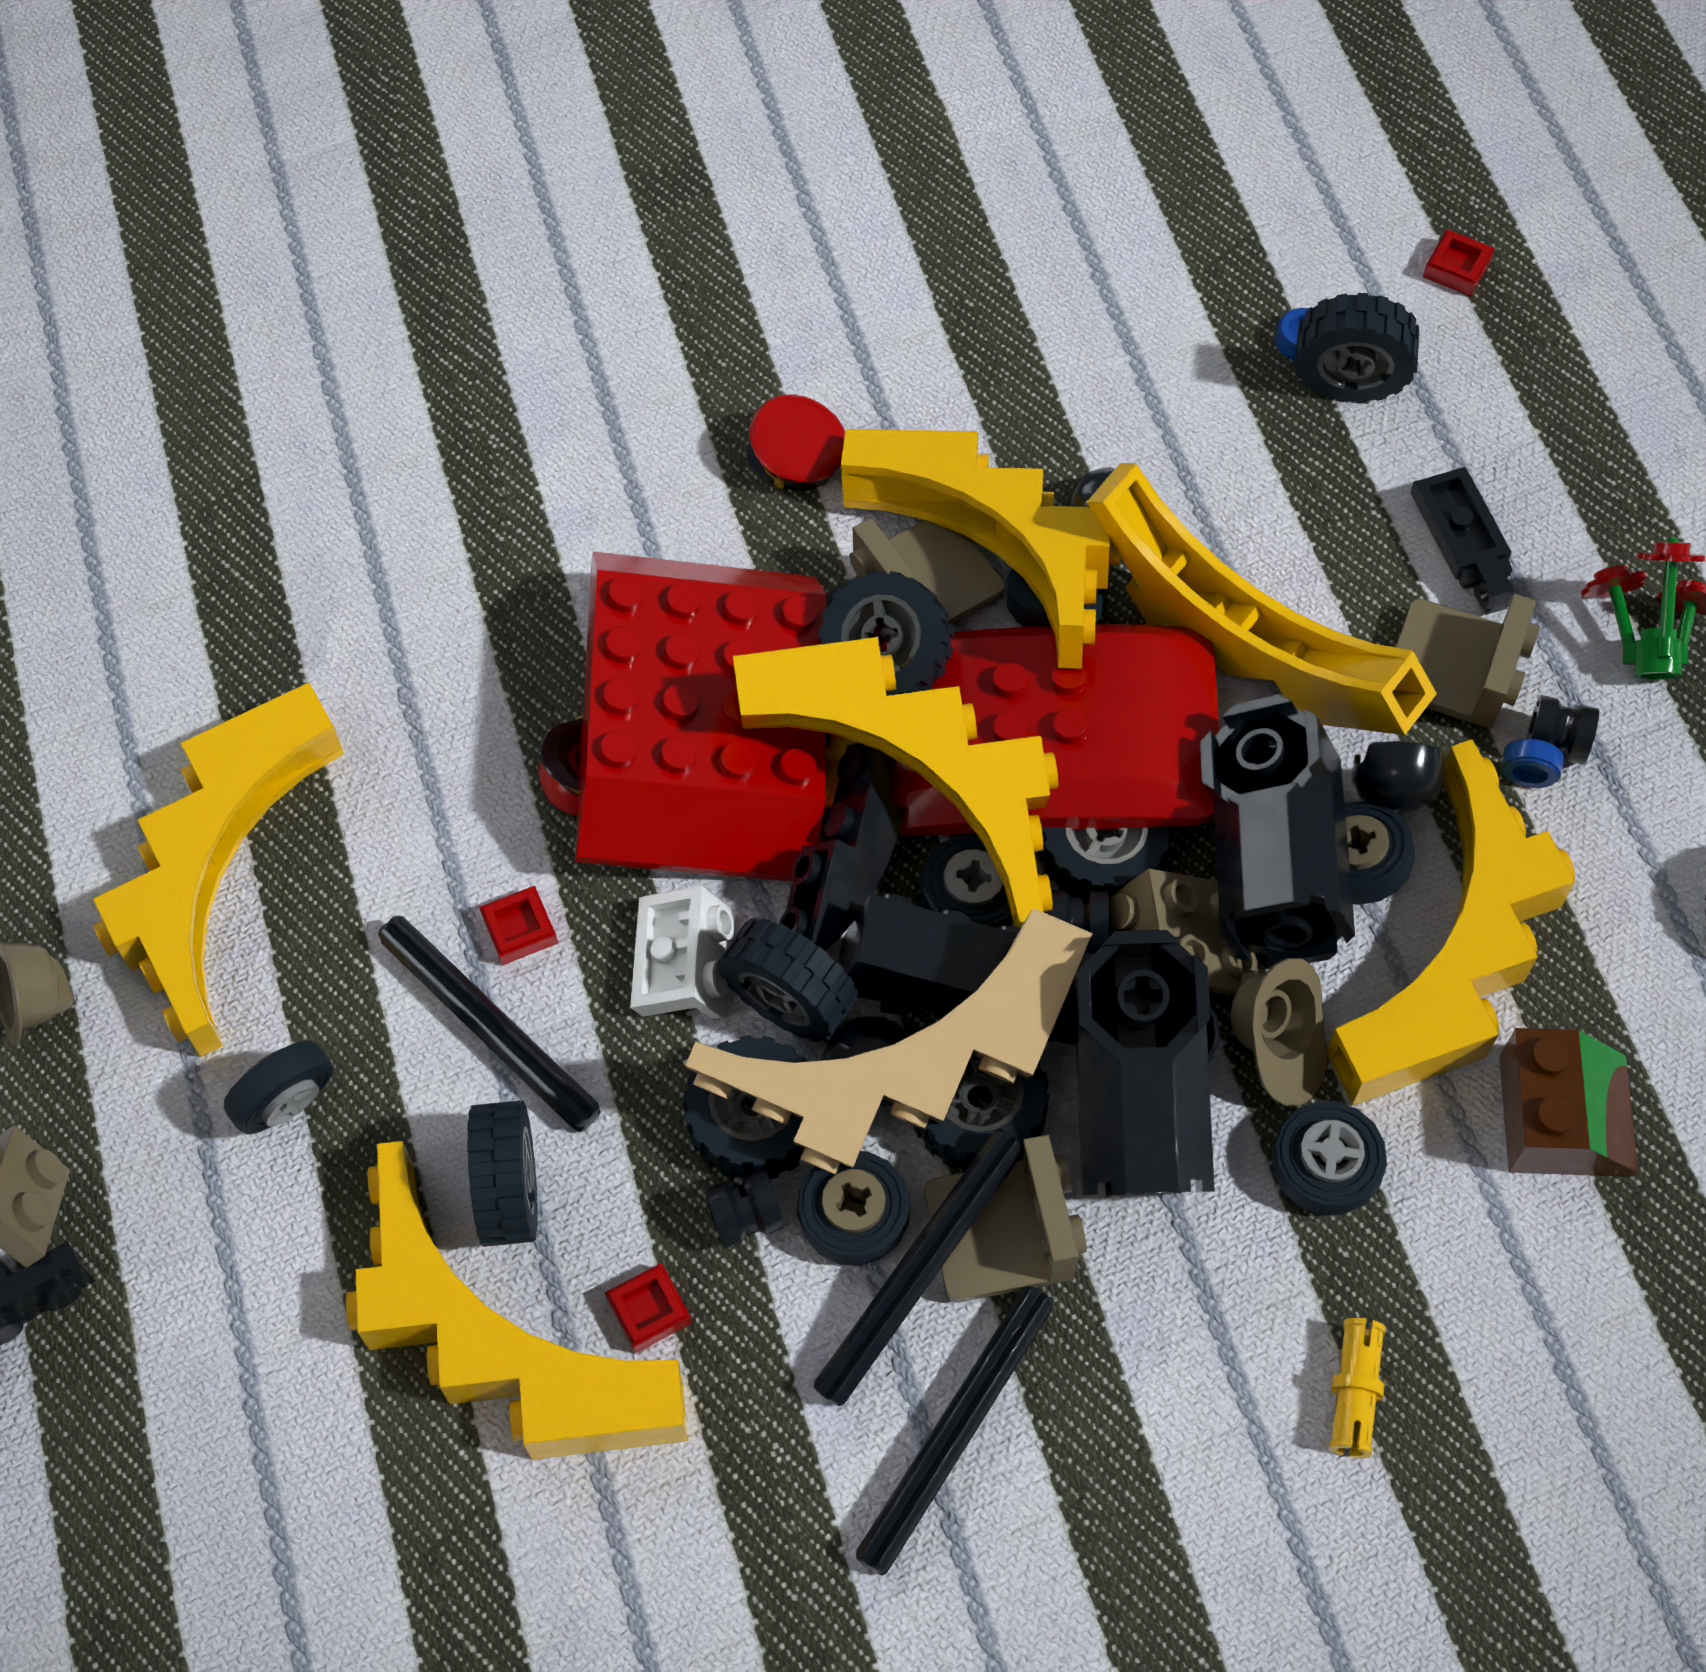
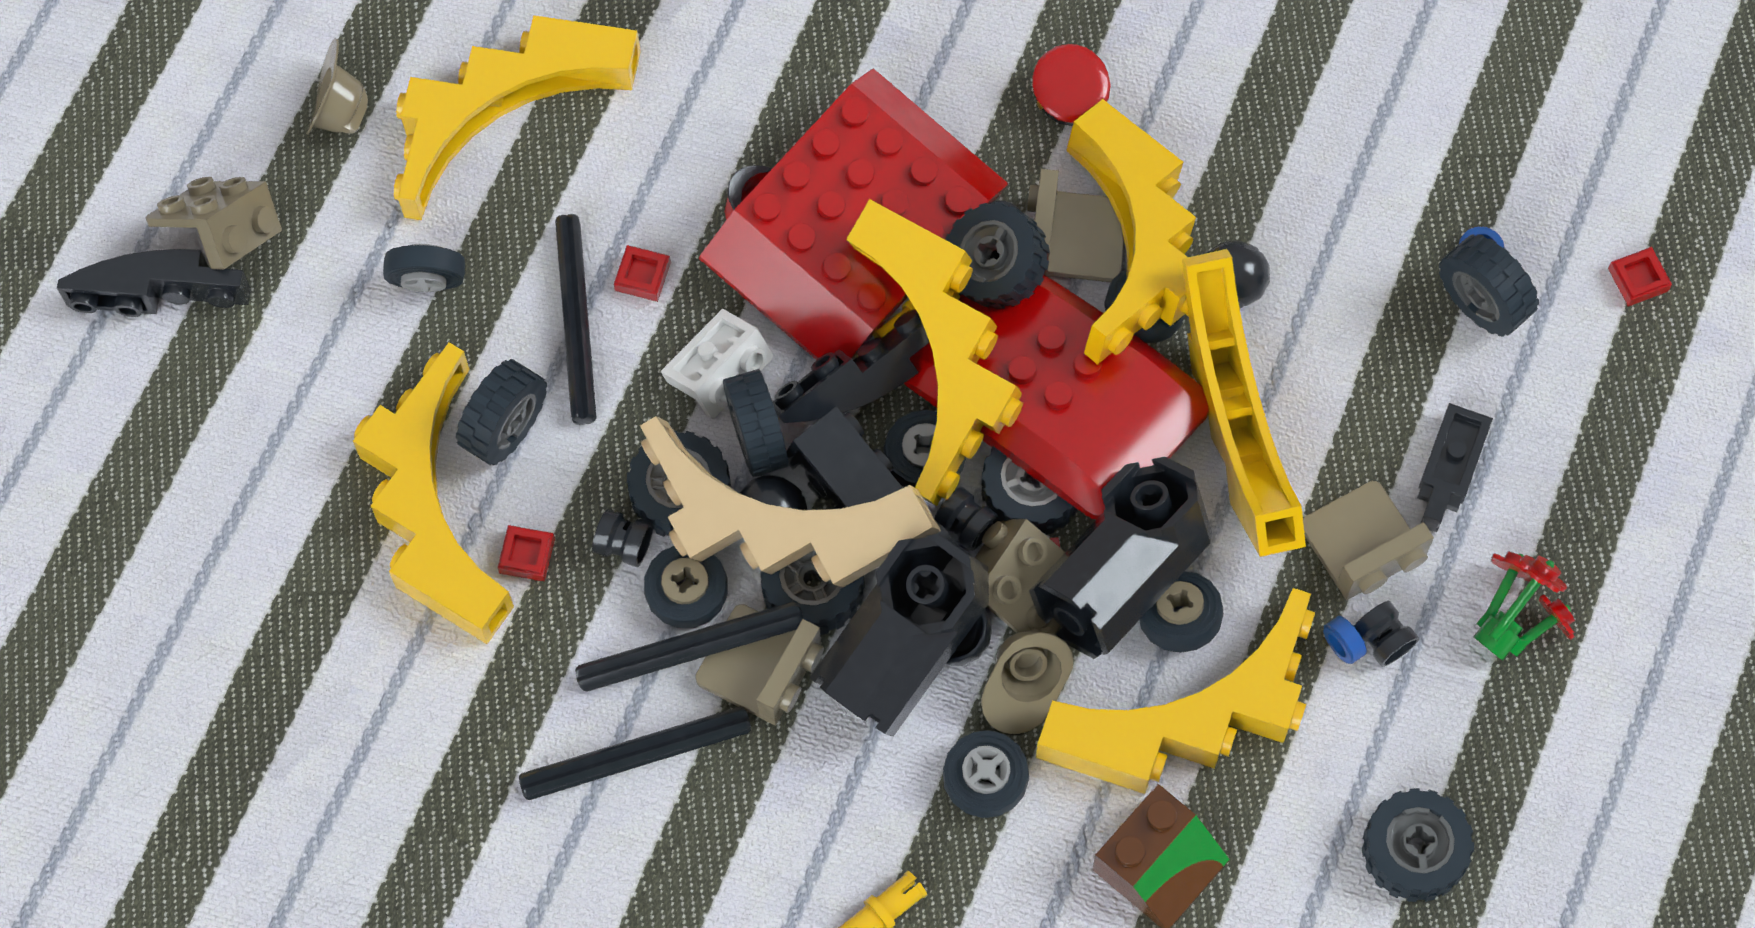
camera: 40 degrees right, 5 degrees up
(1399, 774) = (1244, 582): black hair -> none

